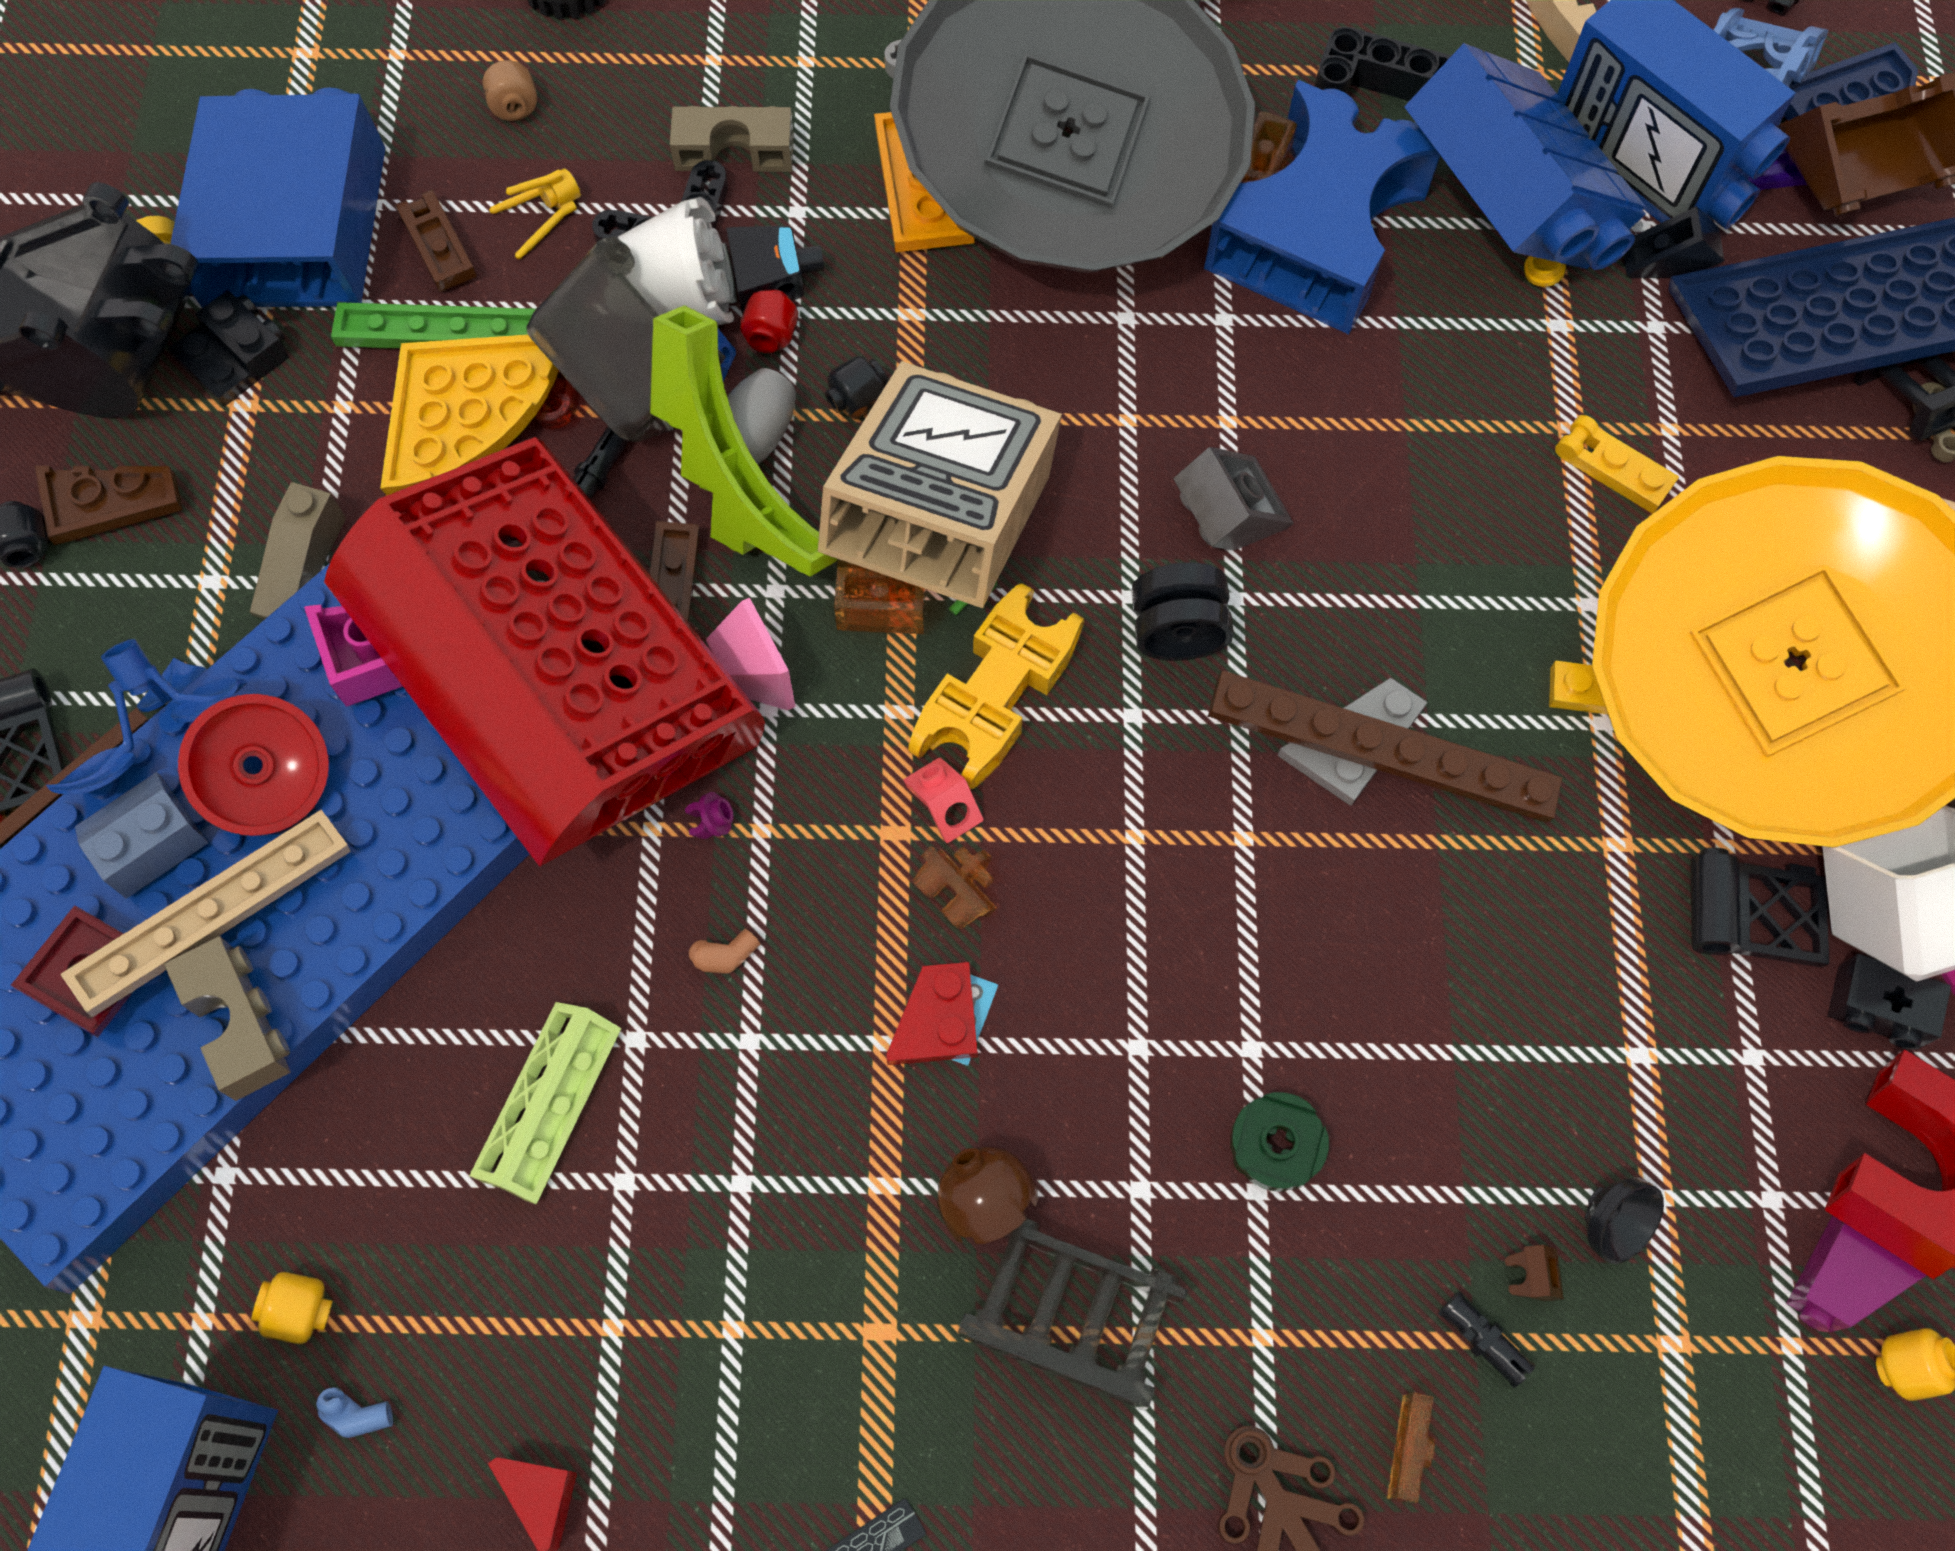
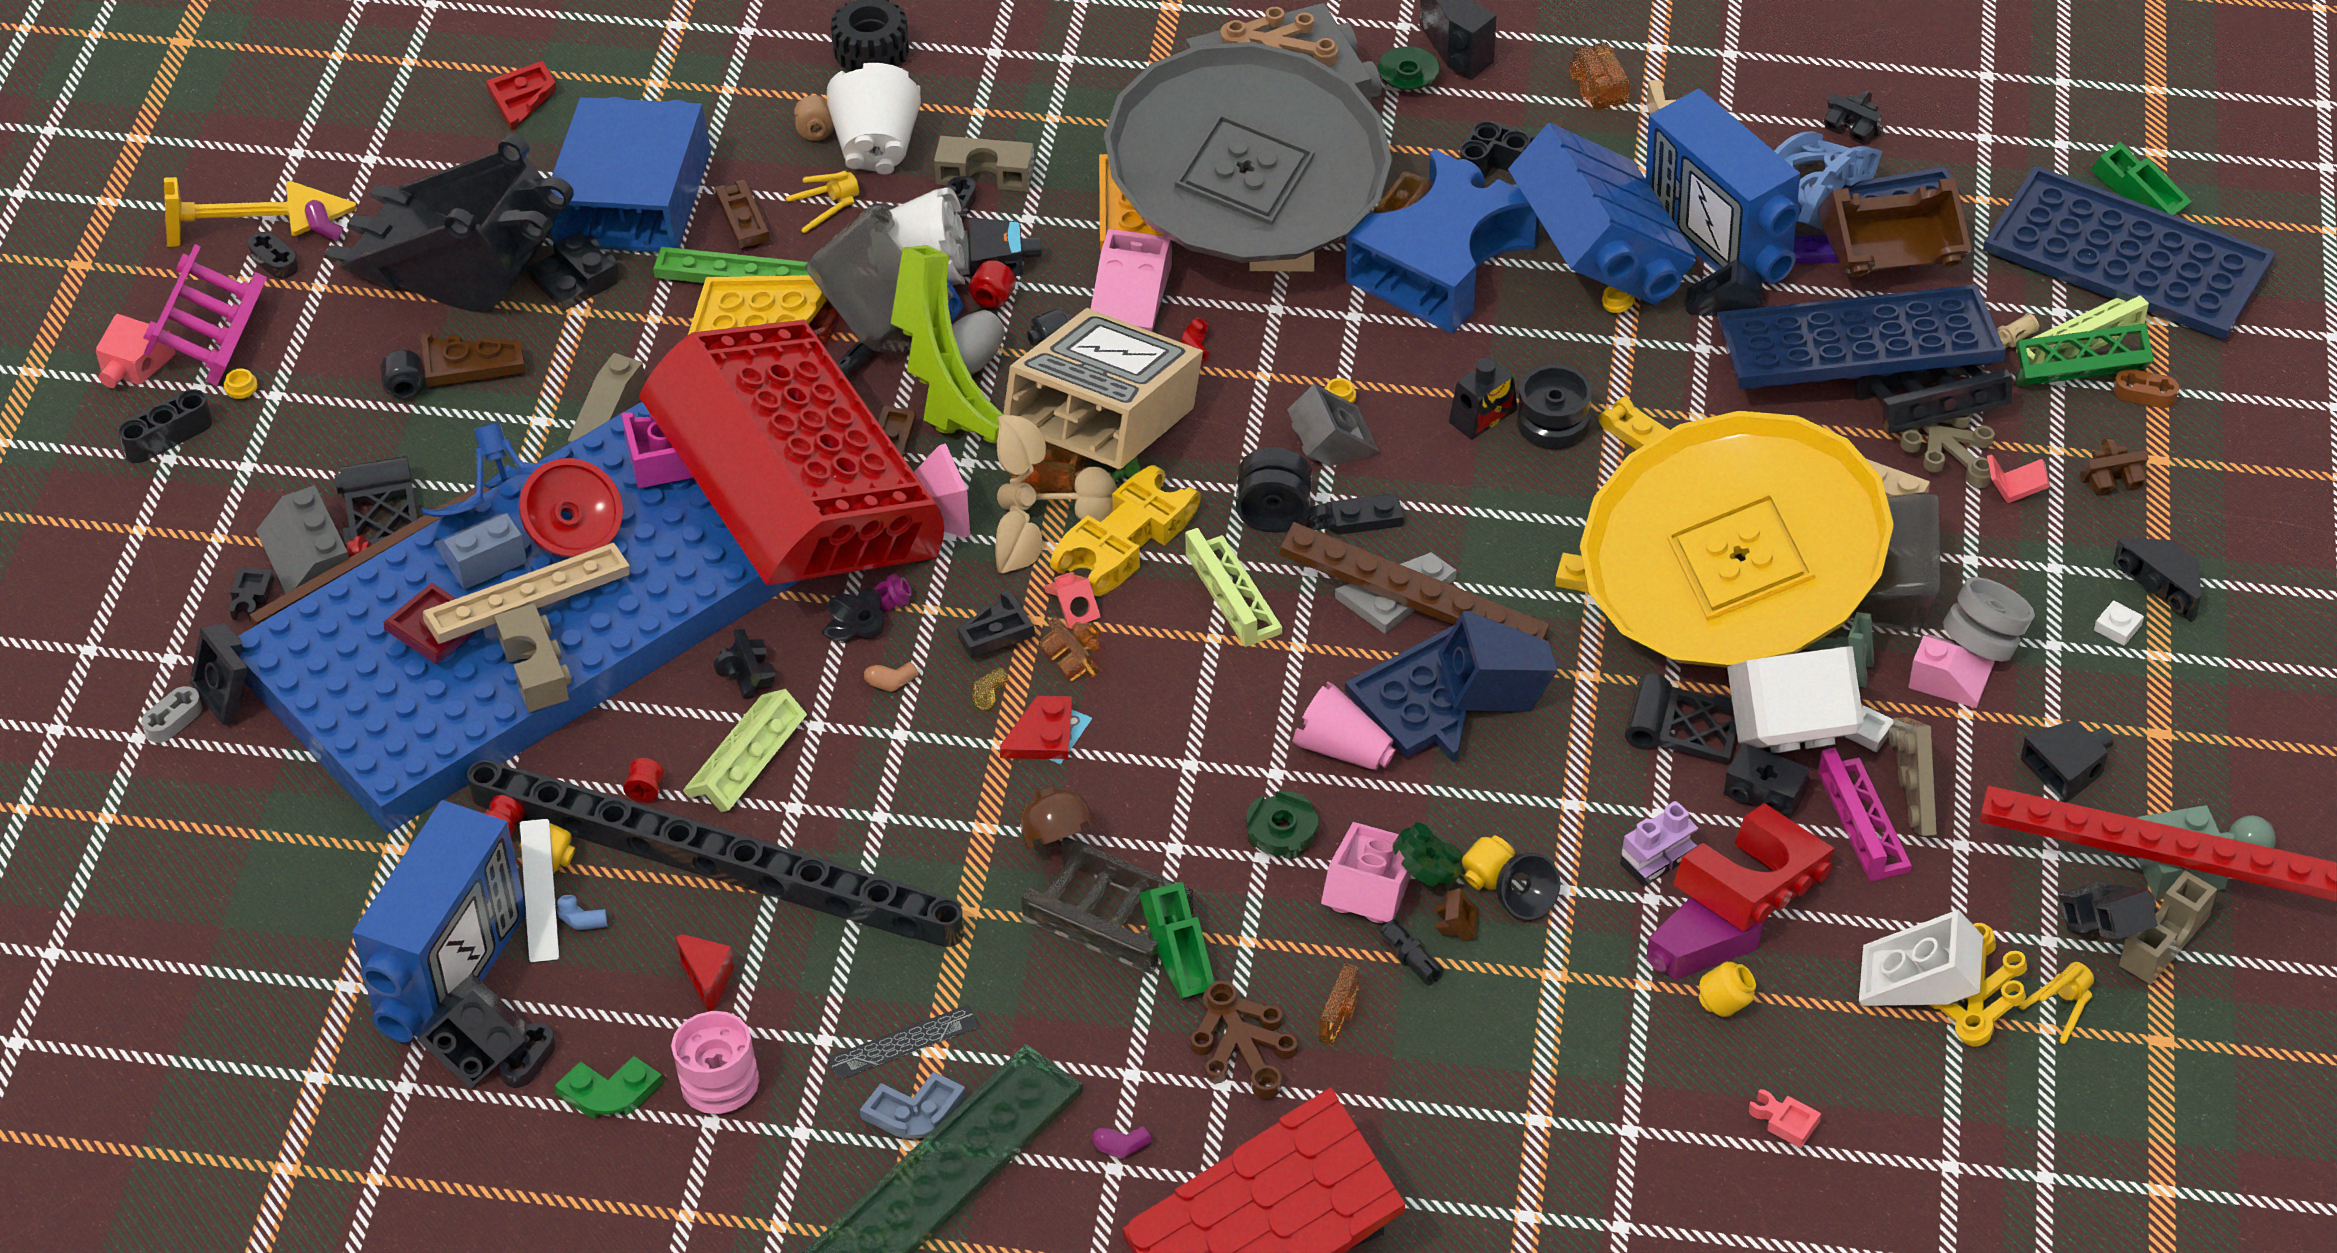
camera: 10 degrees right, 20 degrees down
(133, 83) = (521, 92): none -> red wing
(224, 1261) = (508, 810): none -> red wheel
(287, 1392) = (539, 890): none -> white sticker
(413, 1173) = (643, 780): none -> red wheel
(519, 1287) = (724, 855): none -> black beam
(522, 941) = (742, 664): none -> black hips
(584, 86) = (873, 115): none -> white cone
(658, 854) = (855, 616): none -> black plate
(850, 605) = (1018, 447): none -> tan plant
(851, 959) = (984, 688): none -> clear yellow arm
(852, 857) = (996, 627): none -> black wing
(943, 300) = (1132, 277): none -> bright pink slope
(1033, 375) = (1195, 335): none -> red arm
(1139, 766) = (1226, 593): none -> yellowish green fence
(1178, 1369) = (1178, 938): none -> green slope
(1231, 437) = (1342, 388): none -> yellow plate
(1288, 624) = (1357, 514): none -> black hinge
(1336, 988) = (1343, 731): none -> bright pink cone
(1413, 1213) = (1366, 875): none -> bright pink slope
(1422, 905) = (1412, 699): none -> dark blue wing
(1425, 430) = (1483, 398): none -> black torso
(1486, 1187) = (1428, 856): none -> dark green plate
(1507, 441) = (1554, 406): none -> black wheel
(1520, 871) = (1495, 665): none -> dark blue slope
(1562, 1181) = (1485, 861): none -> yellow head
(1779, 1126) = (1658, 844): none -> lavender hips

